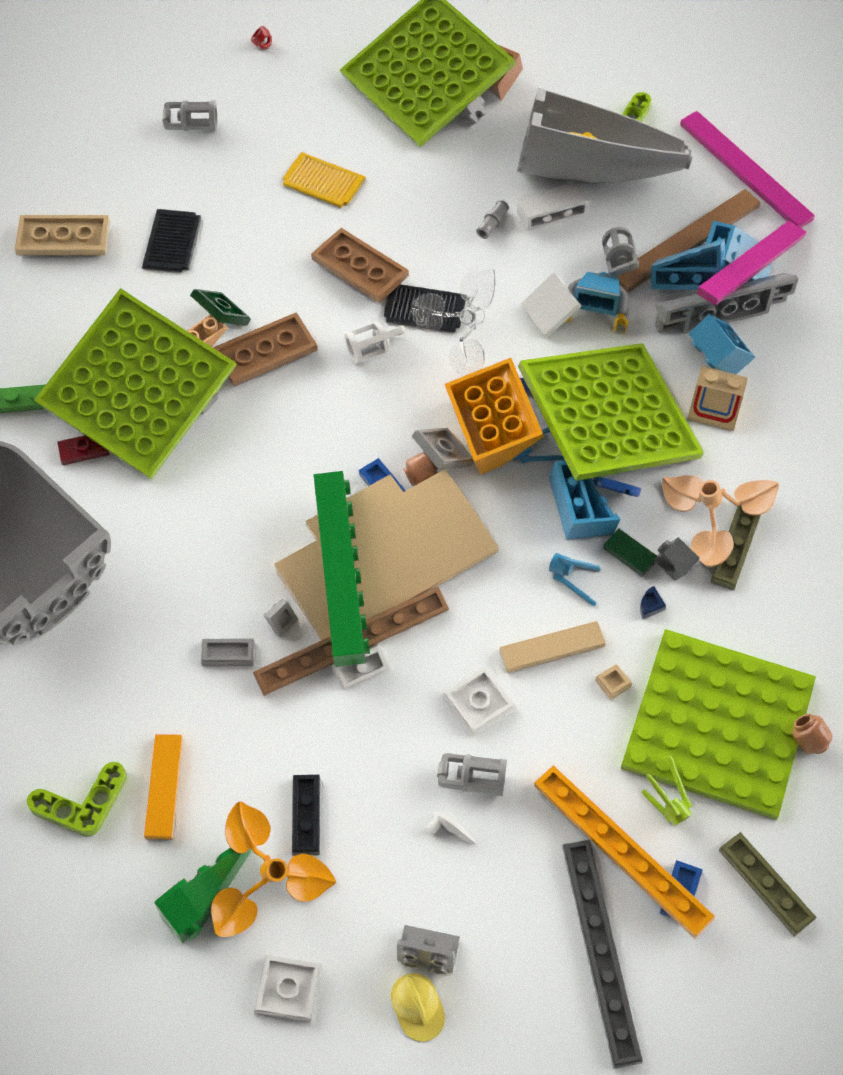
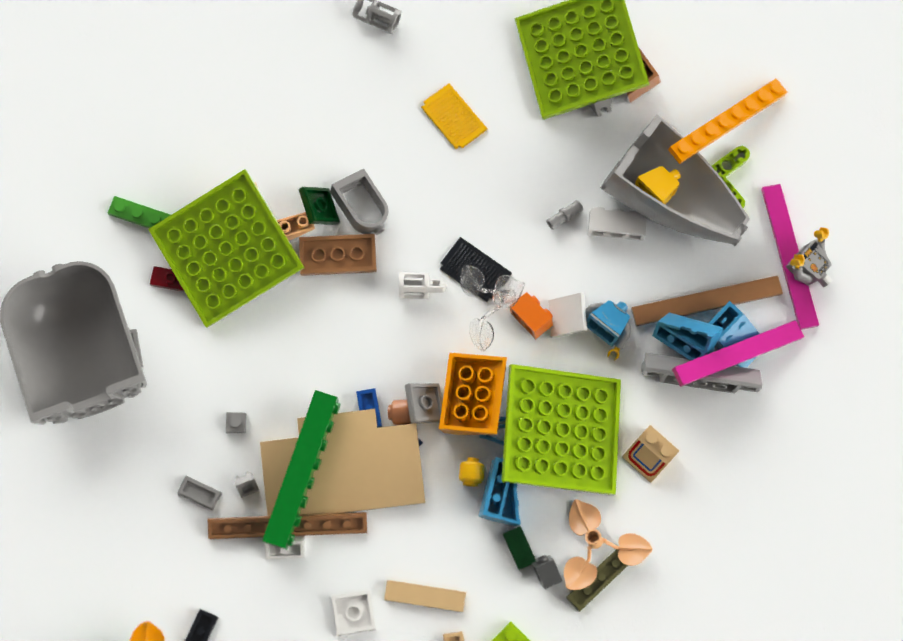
camera: 20 degrees right, 15 degrees up
(62, 235) = (233, 83): tan plate -> none
(78, 811) = (47, 566): lime beam -> none
(163, 787) = (111, 574): light orange tile -> none
(172, 240) = (313, 122): black window -> none
(234, 561) = (235, 422): none -> light grey plate
(254, 266) = (350, 182): none -> light grey window
(360, 265) = (442, 212): medium nougat plate -> none
(511, 320) = (532, 315): none -> orange brick
(534, 496) = (471, 472): none -> yellow head
(563, 565) = (464, 537): dark azure plant -> none
(611, 72) = (727, 121): none -> light orange plate
(617, 486) = (535, 496): blue tile -> none
(621, 256) = (641, 299): light grey piece -> none
(651, 603) = (513, 595): dark blue tile -> none
(721, 345) = (675, 413): dark azure brick -> none
(771, 160) = (812, 261): none -> light grey torso

